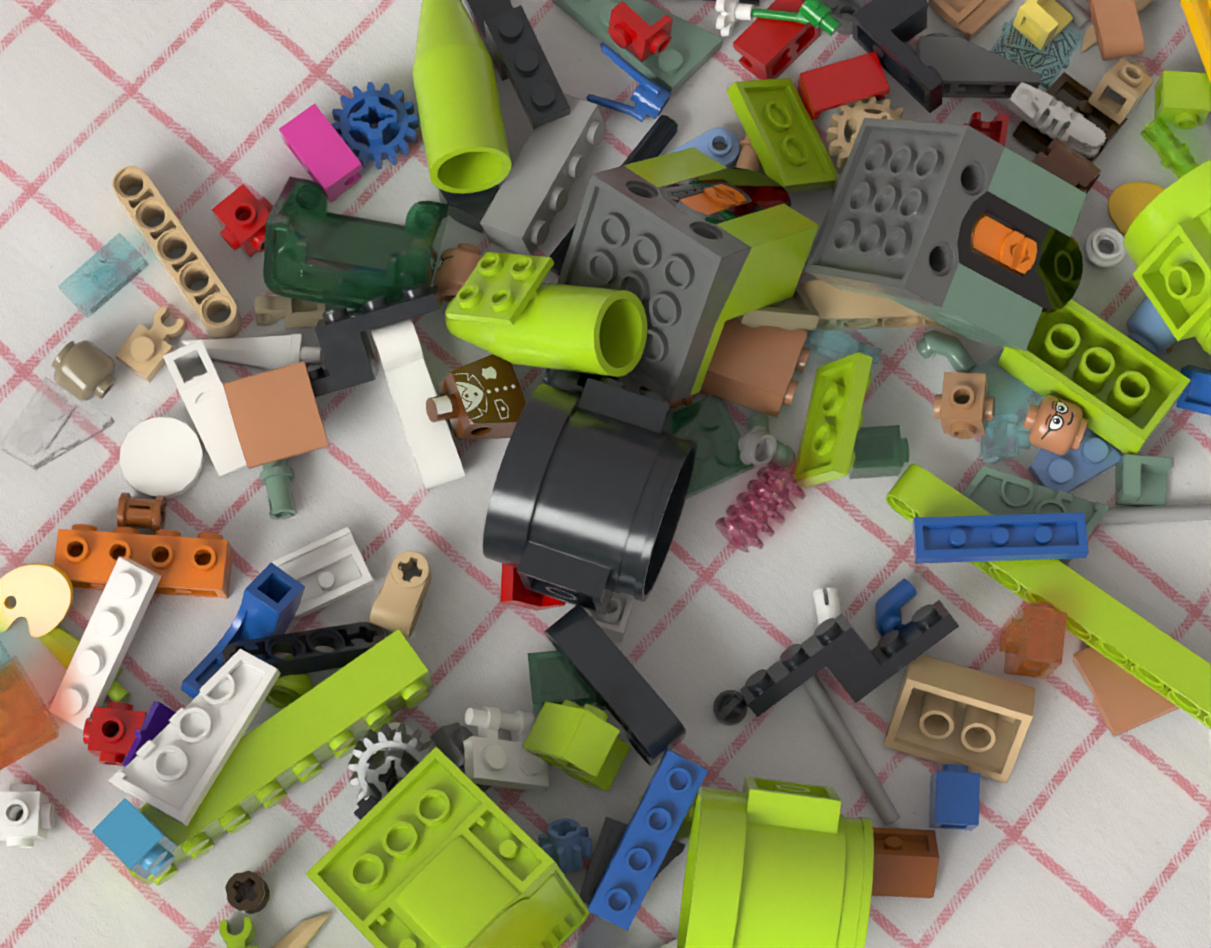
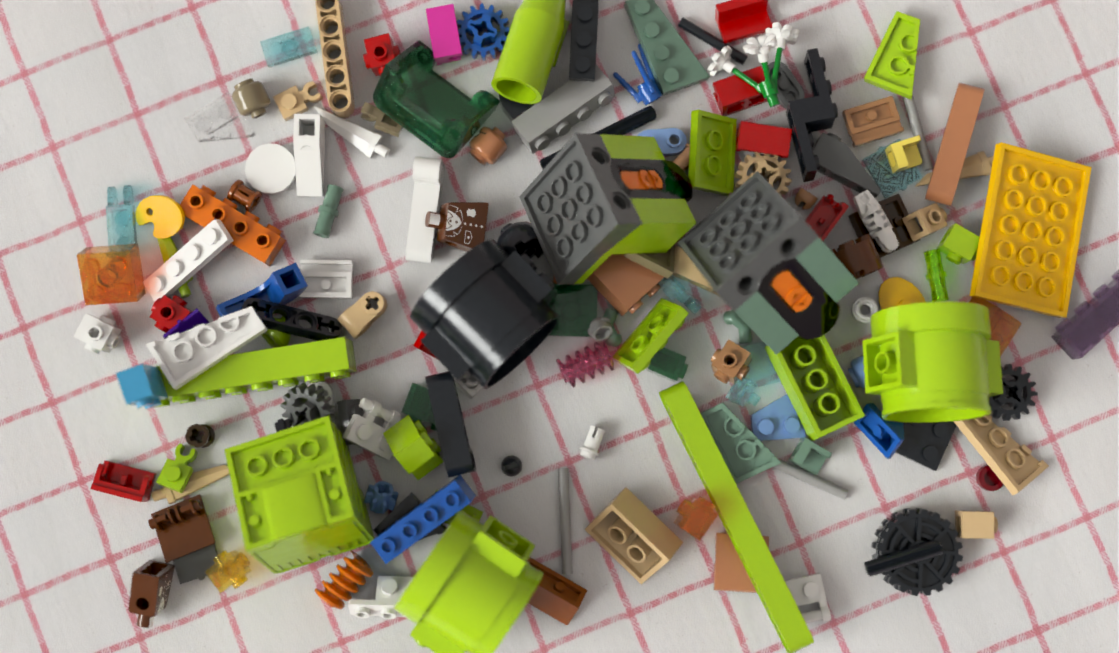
camera: 30 degrees right, 10 degrees up
(276, 415) = (341, 178): nougat slope -> none
(346, 342) = (398, 159): black bracket -> none
(547, 324) = (512, 203): lime piece -> none
(636, 35) = (655, 50): red bracket -> none
(848, 657) = (588, 473): black bracket -> none
(888, 607) = (627, 456): blue arm -> none
(954, 798) = (606, 579): blue brick -> none
(1000, 538) = (706, 451): blue plate -> none
(1055, 425) = (775, 401): nougat head -> none

